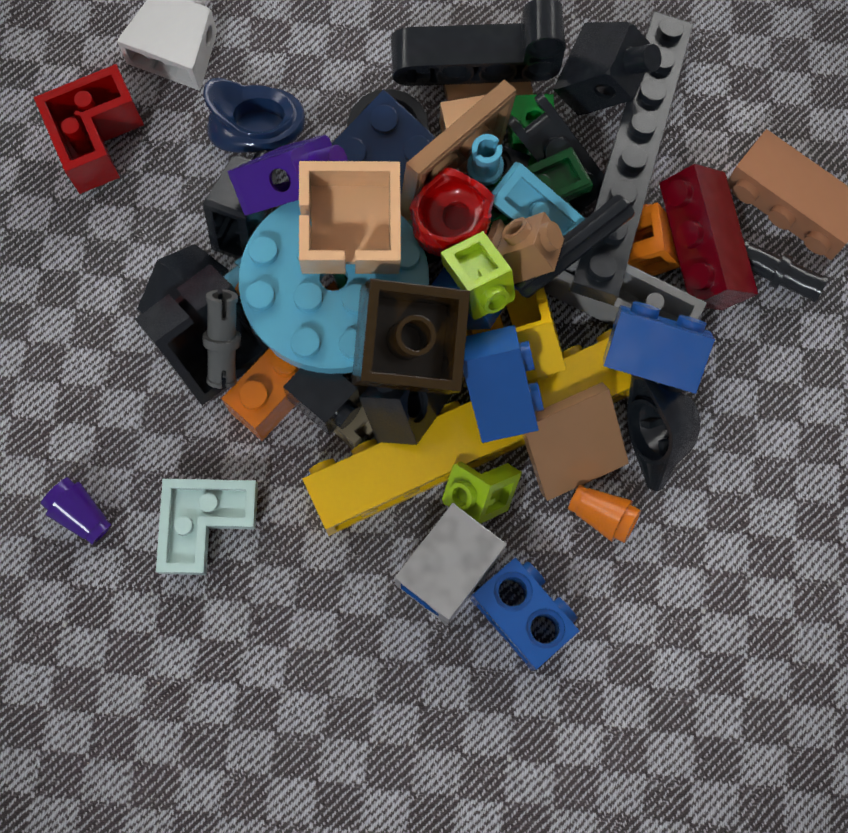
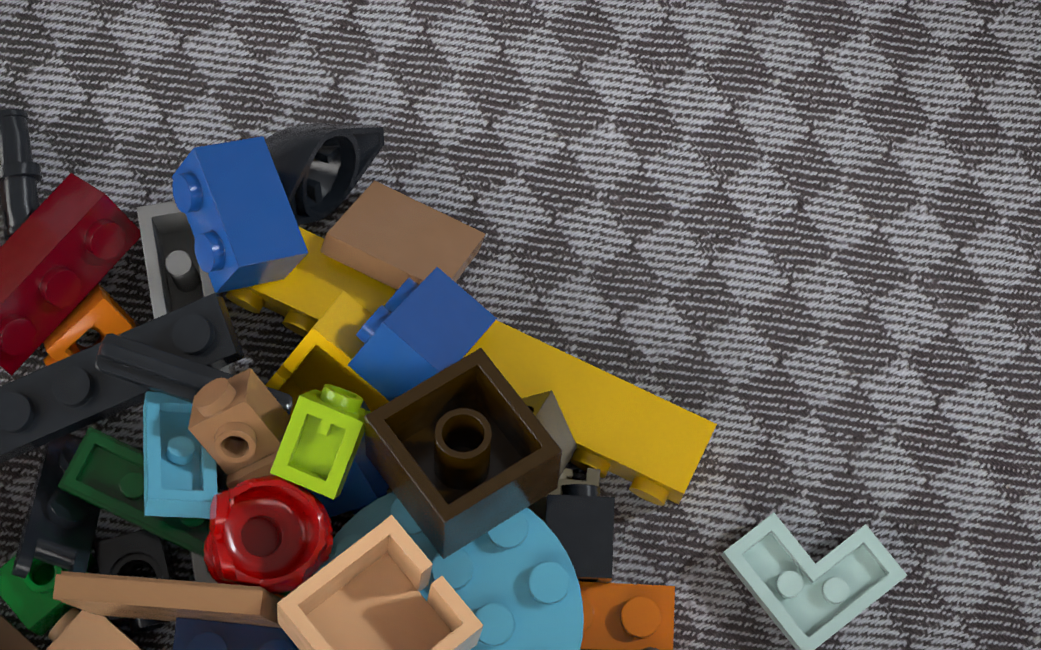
camera: 130 degrees left, 0 degrees up
(449, 563) = (644, 270): flat silver piece -> none
(482, 494) = (547, 296): lime bracket -> none
(486, 160) = (162, 544): medium azure pin -> none
(515, 621) = (636, 165): blue brick -> none
(605, 512) = (451, 162): orange cone -> none

